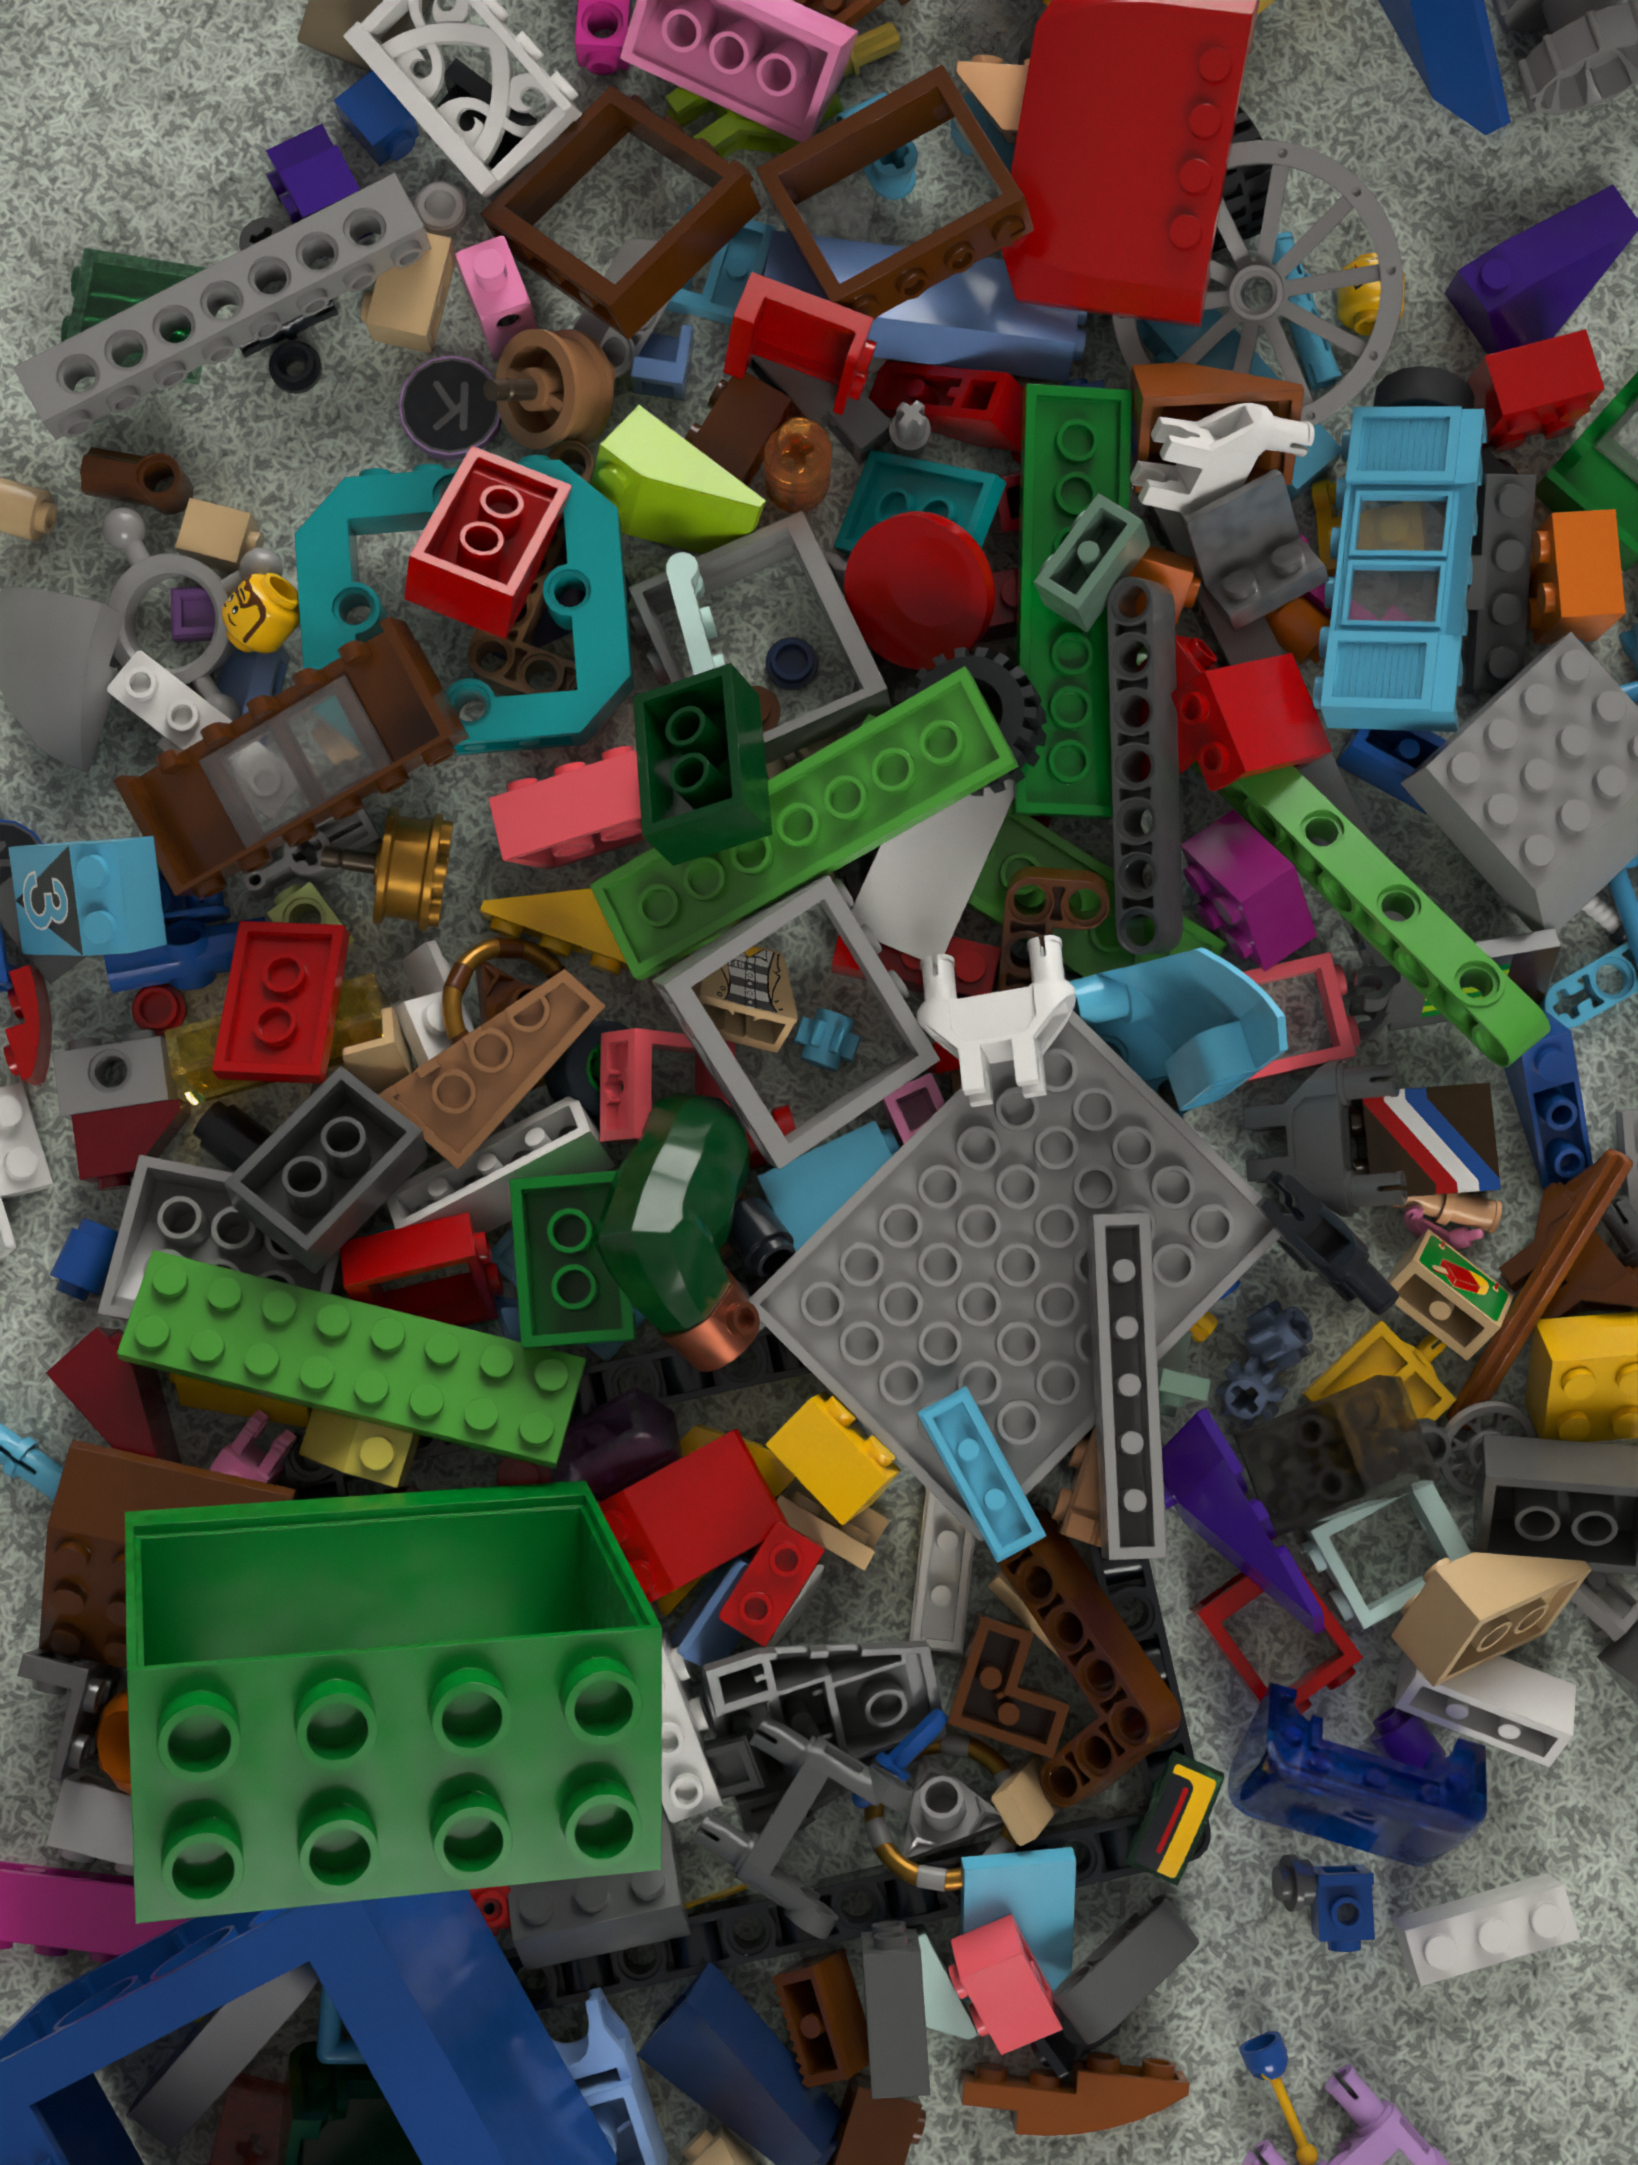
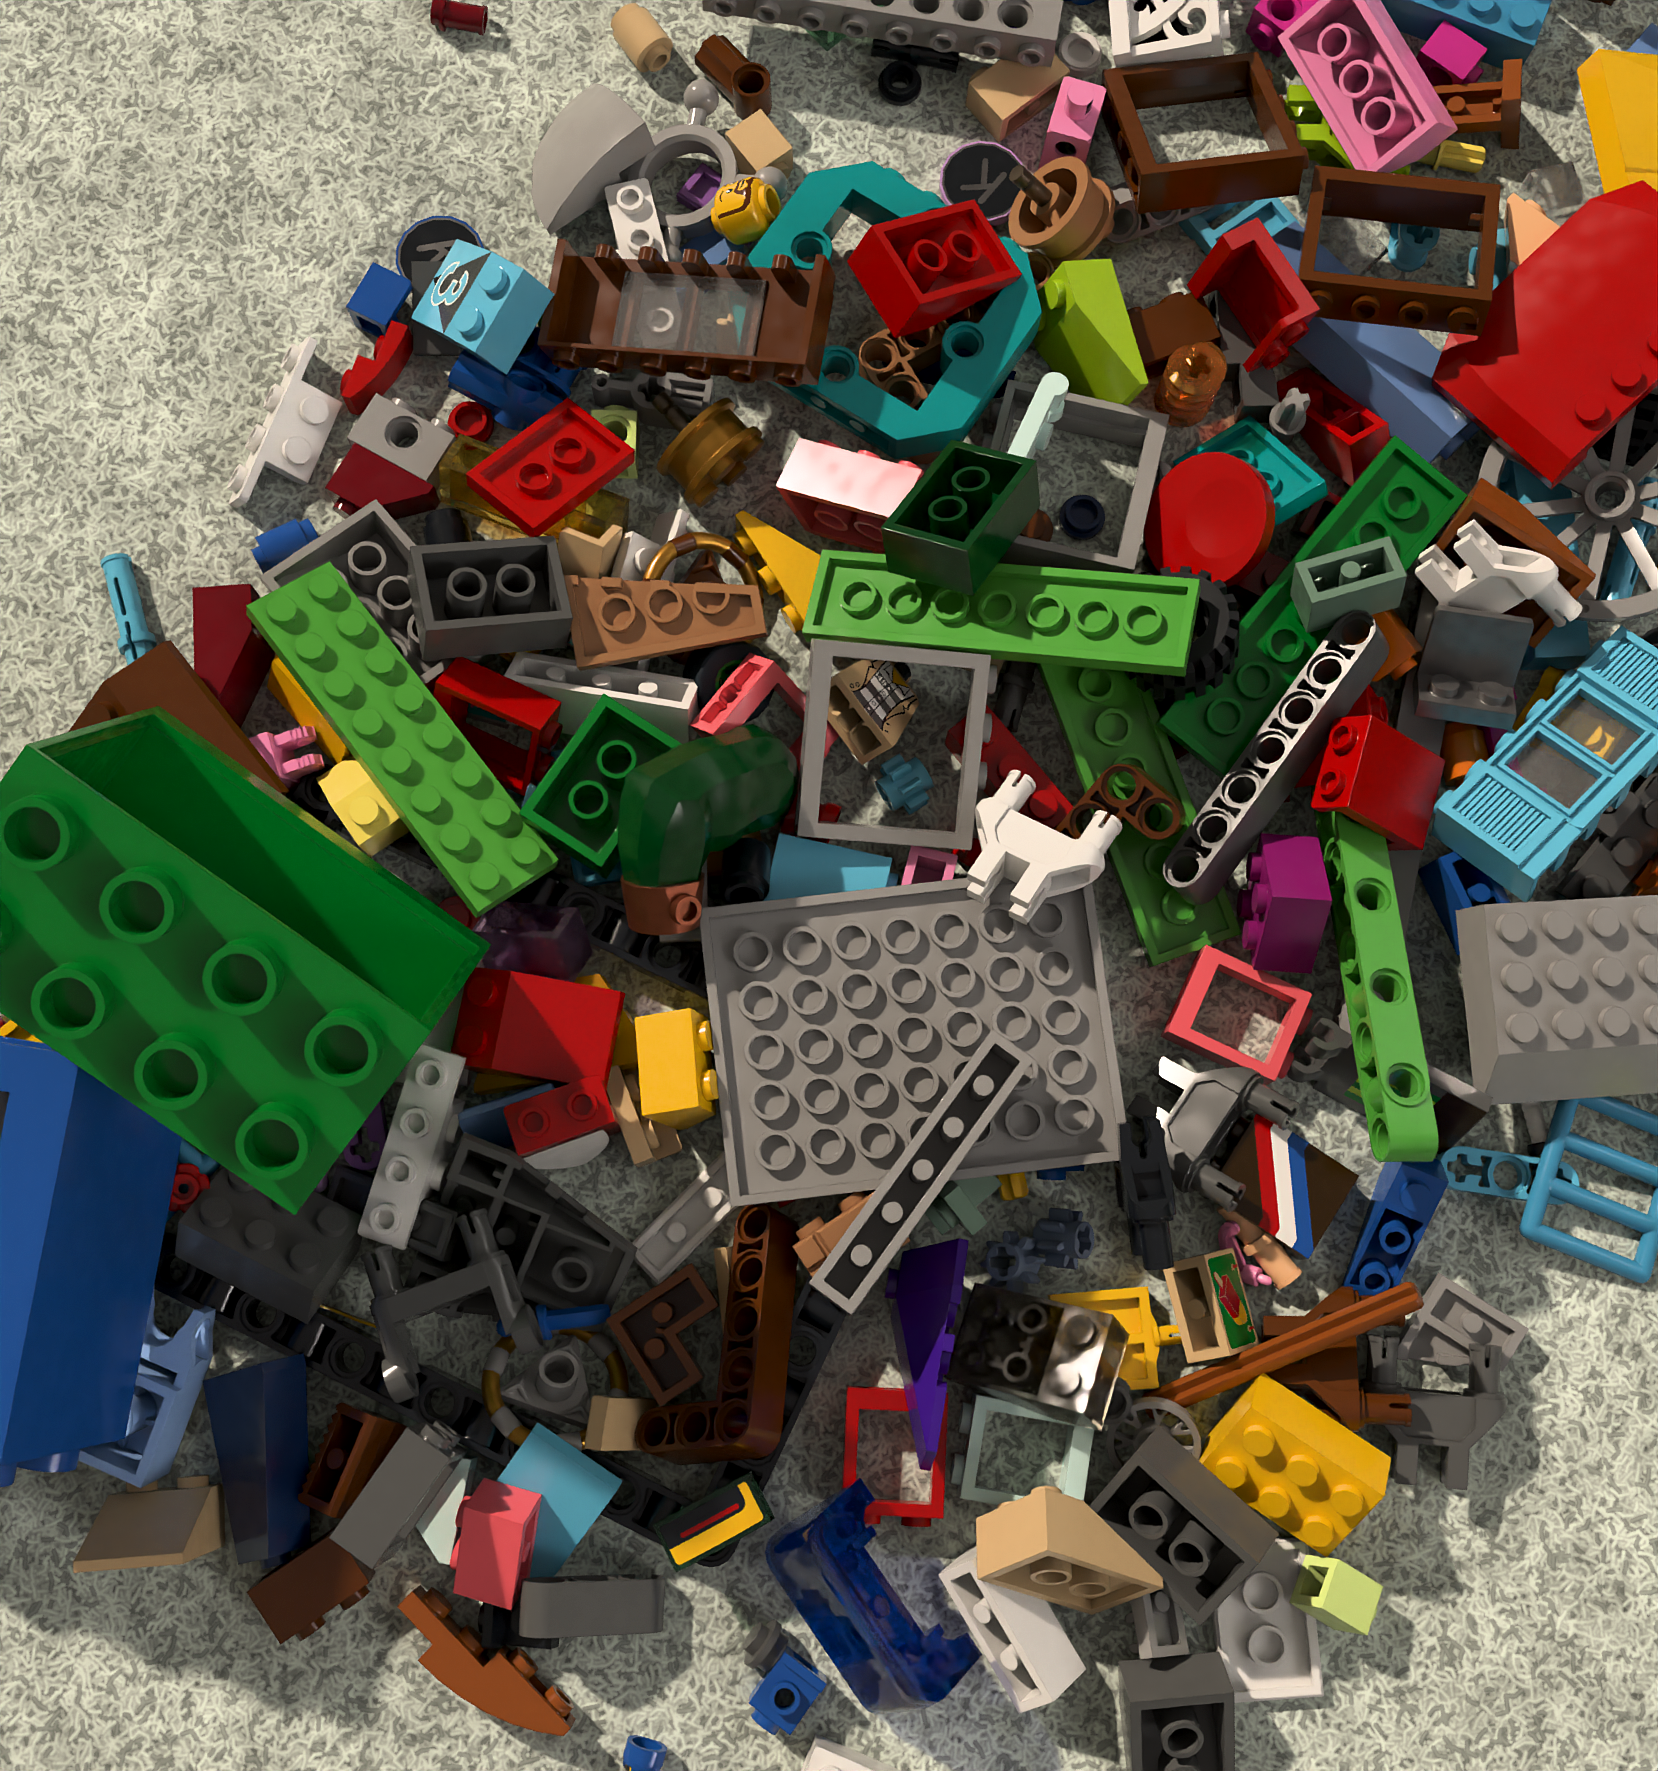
camera: 40 degrees right, 5 degrees down
(664, 365) = (1150, 259): medium blue panel -> none
(929, 873) = (1068, 716): white sticker -> none
(981, 1474) = (769, 1158): medium azure tile -> none
(1185, 1023) = (1163, 945): medium azure panel -> none
(1404, 1738) = (929, 1603): dark purple brick -> none

